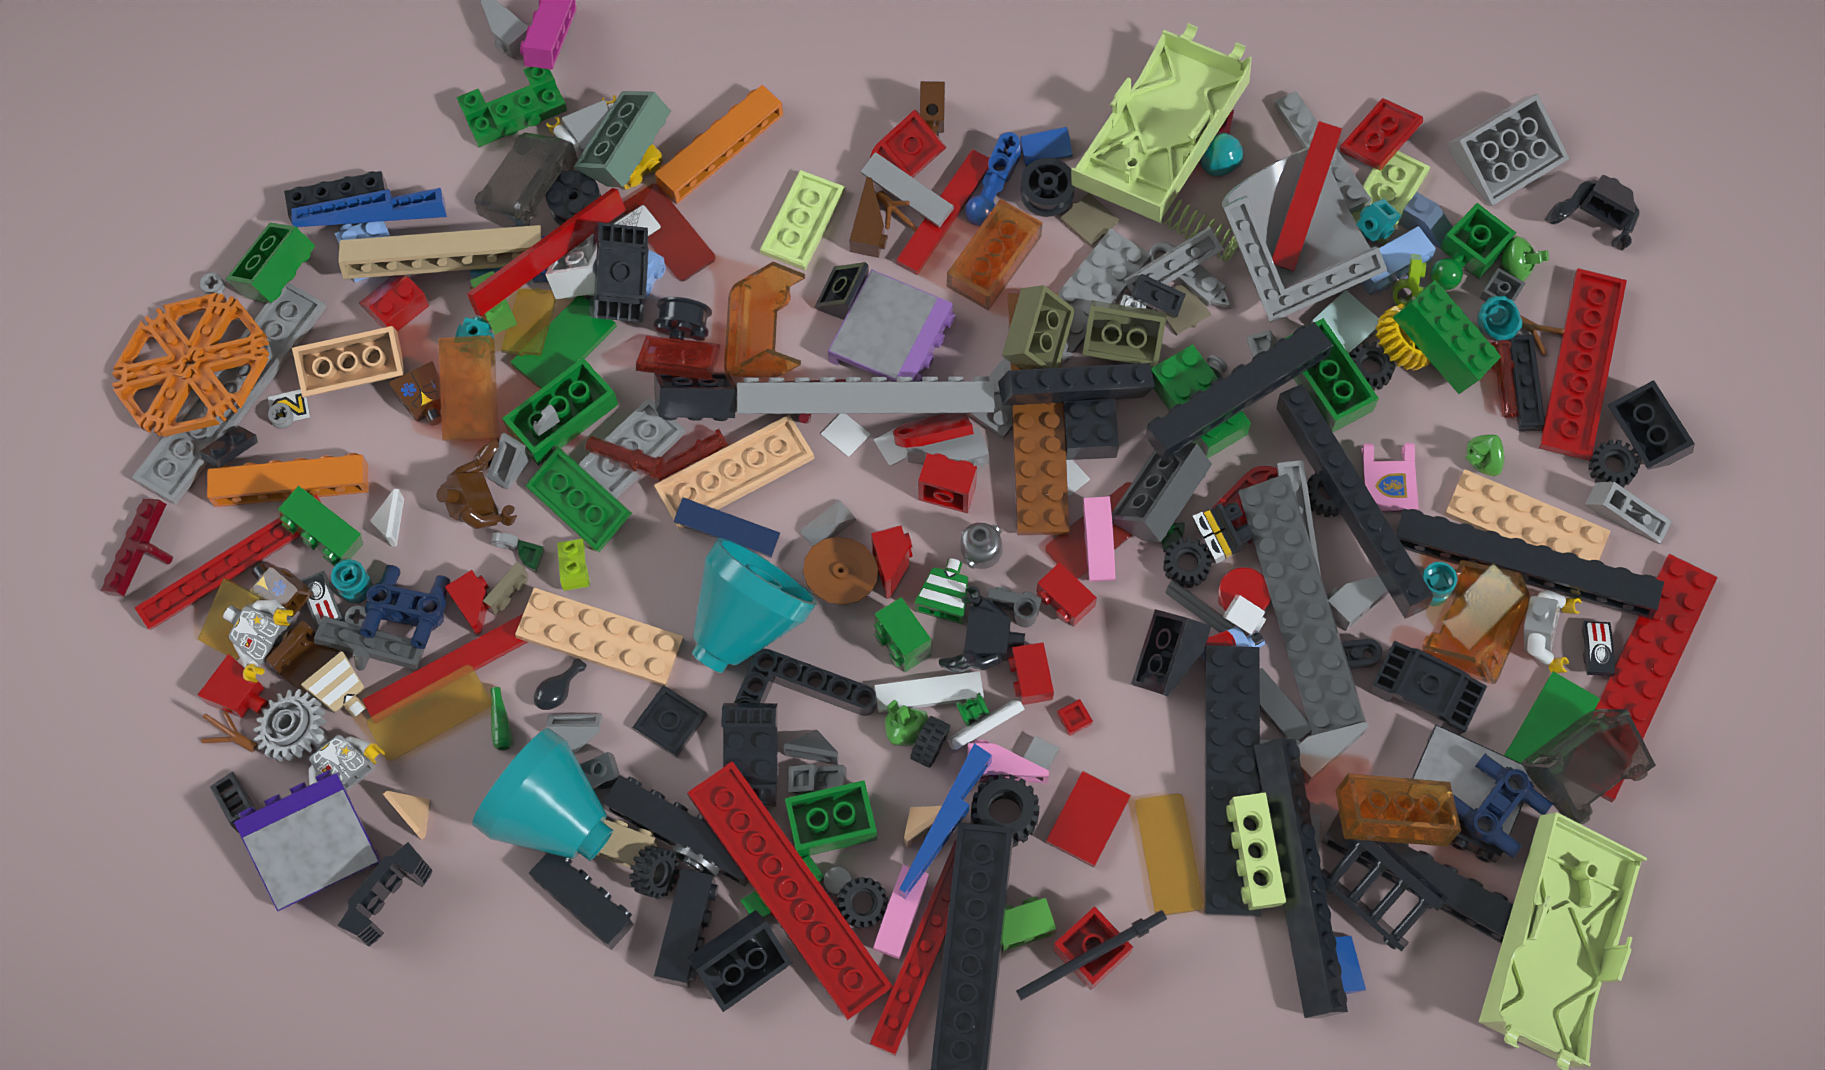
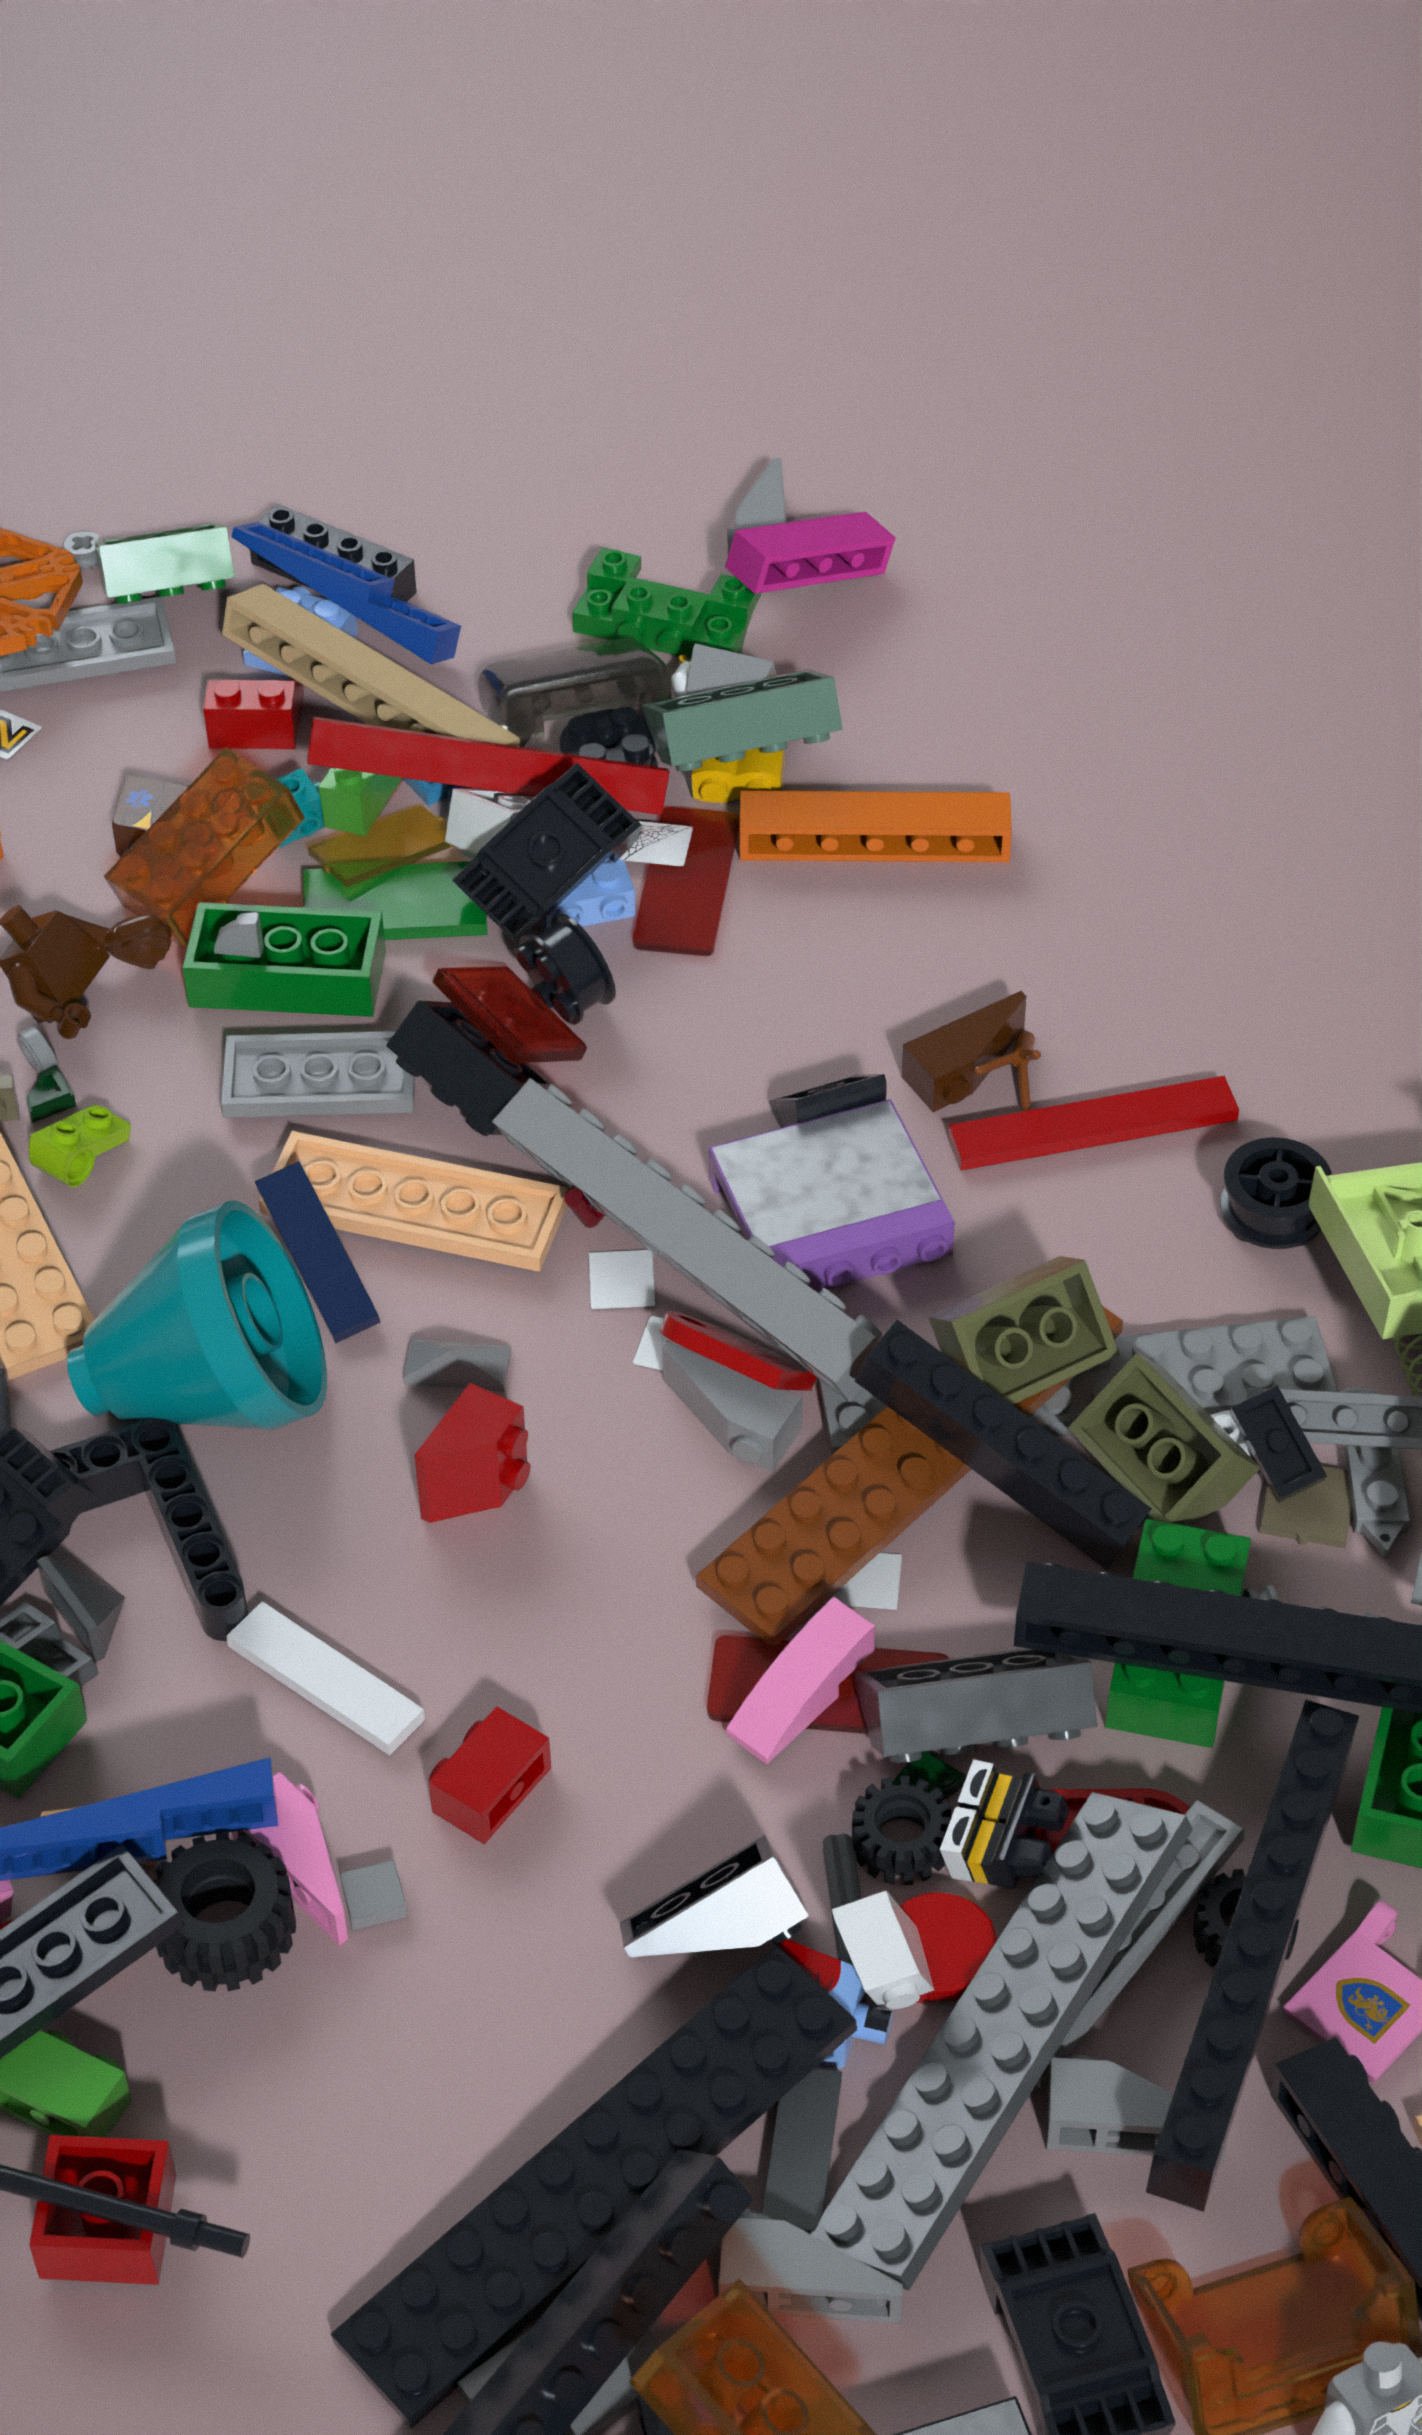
camera: 45 degrees right, 20 degrees down
(348, 361) = (118, 720): light nougat slope -> none
(508, 461) = (155, 969): light grey slope -> none
(578, 499) = (182, 1076): green tile -> none
(634, 459) = (299, 1076): clear red pin -> none
(701, 450) = (401, 1139): clear red pin -> none
(753, 323) = (670, 1051): clear orange windscreen -> none
(802, 220) = (881, 992): yellowish green tile -> none
(840, 570) = (383, 1416): dark orange piece -> none
(902, 635) = (366, 1560): green brick -> none
(904, 724) = (231, 1682): bright green piece -> none
(907, 188) = (1063, 1050): light grey tile -> none
(910, 145) = (1116, 1001): red tile -> none
(930, 741) = (234, 1725): black tyre -> none
(933, 104) = (1217, 981): reddish brown torso -> none
(943, 593) = (499, 1569): green torso -> none
(947, 482) = (669, 1428): red brick -> none
(973, 709) = (349, 1744): green bush -> none
(981, 205) = (1236, 1117): blue beam -> none
(981, 545) = (620, 1544): flat silver piece -> none
(985, 724) = (347, 1779): white tile -> none
(986, 636) = (481, 1667): black torso -> none
(994, 254) = (1094, 1209): clear orange brick -> none
(1011, 601) = (580, 1667): dark grey plate -> none
(1046, 144) = (1343, 1142): blue slope -> none
(1065, 595) = (666, 1716): red brick -> none
(1074, 717) = (483, 1891): red tile -> none
(1088, 819) = (331, 2042): red tile -> none
(1089, 219) = (1301, 1286): dark tan piece -> none
(1091, 429) = (966, 1535): black brick -> none
(1169, 854) = (386, 2205): clear yellow piece -> none
(1257, 809) = (540, 2214): yellowish green brick -> none
(1354, 653) = (1019, 2187): black plate -> none
(1441, 581) = (1269, 2198): teal wheel -> none
(1482, 606) = (1301, 2289): clear yellow piece -> none

